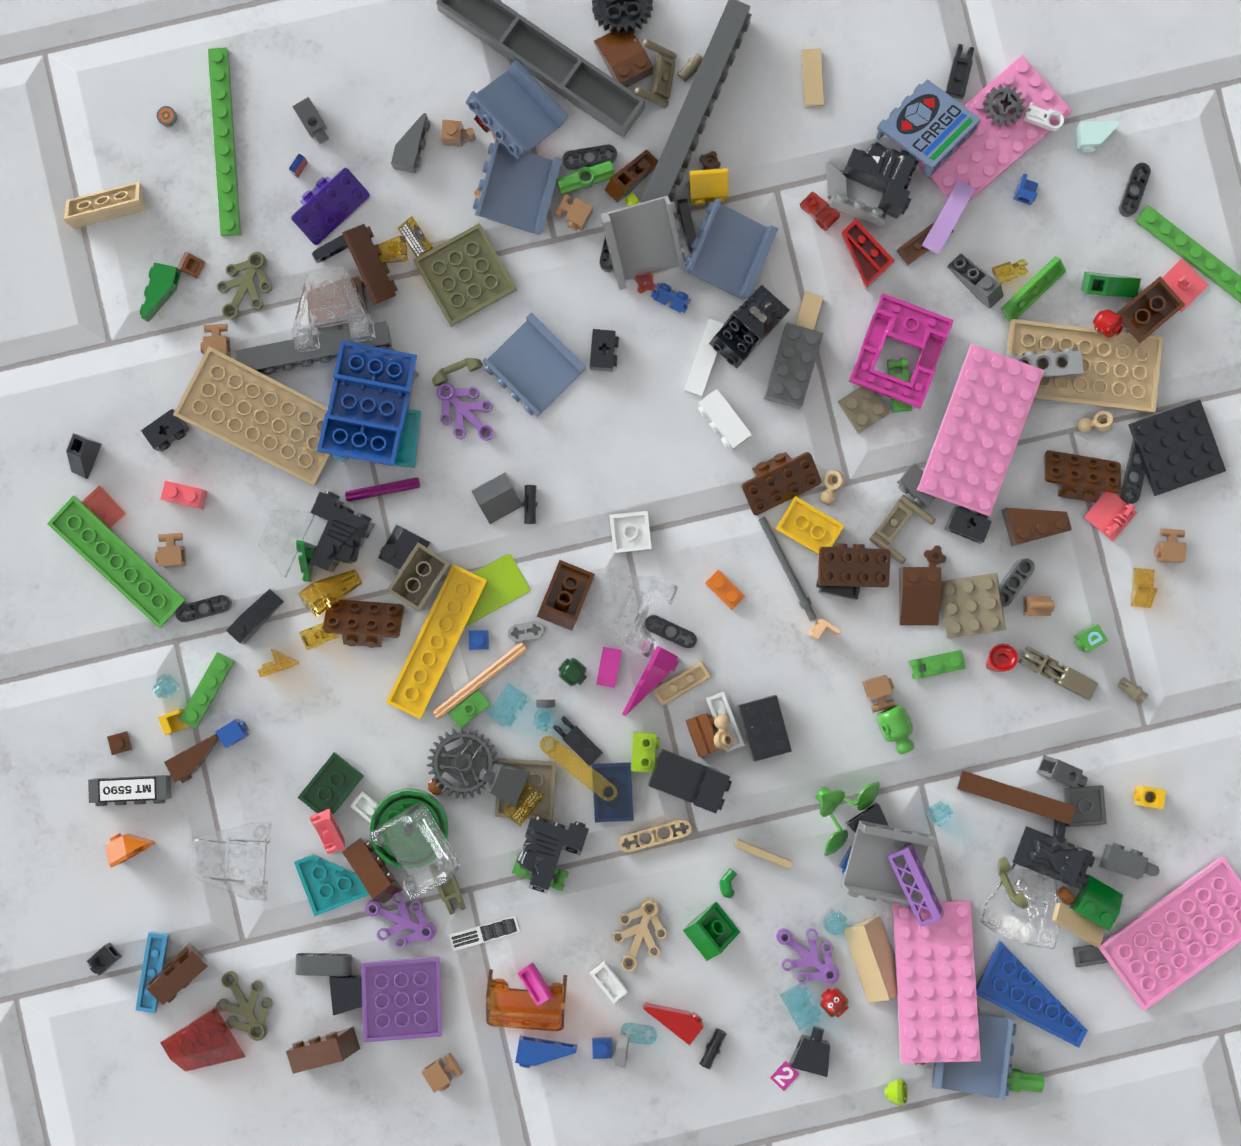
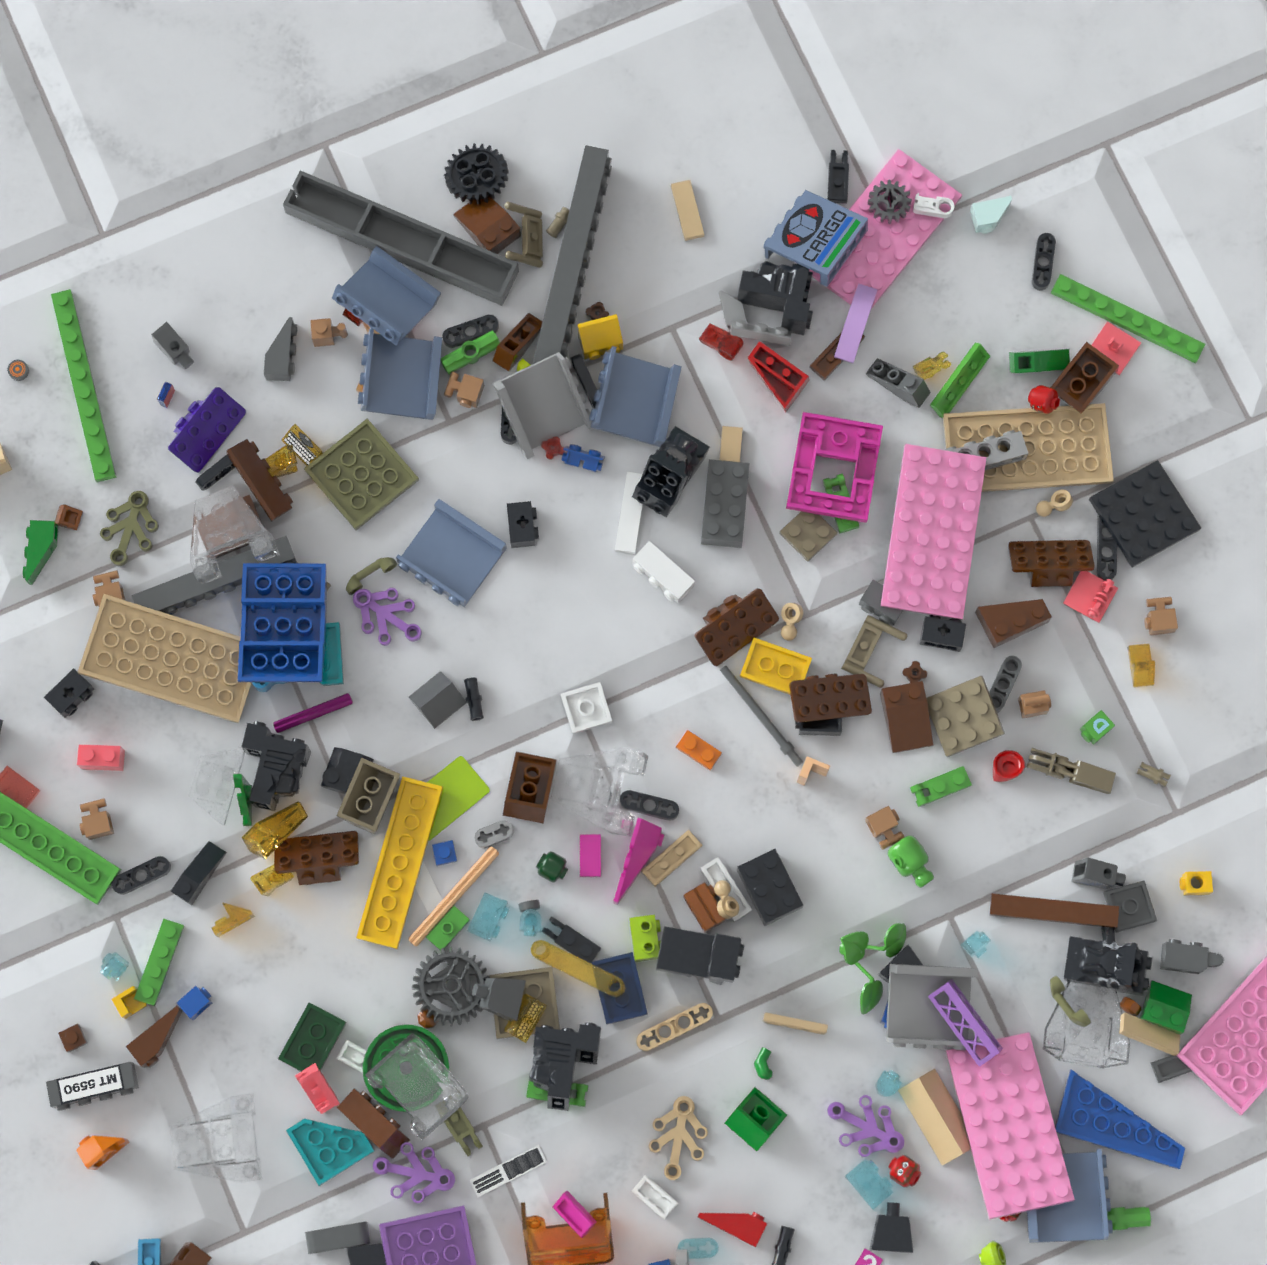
camera: 10 degrees left, 10 degrees down
(1025, 190) = (931, 282): blue panel -> none

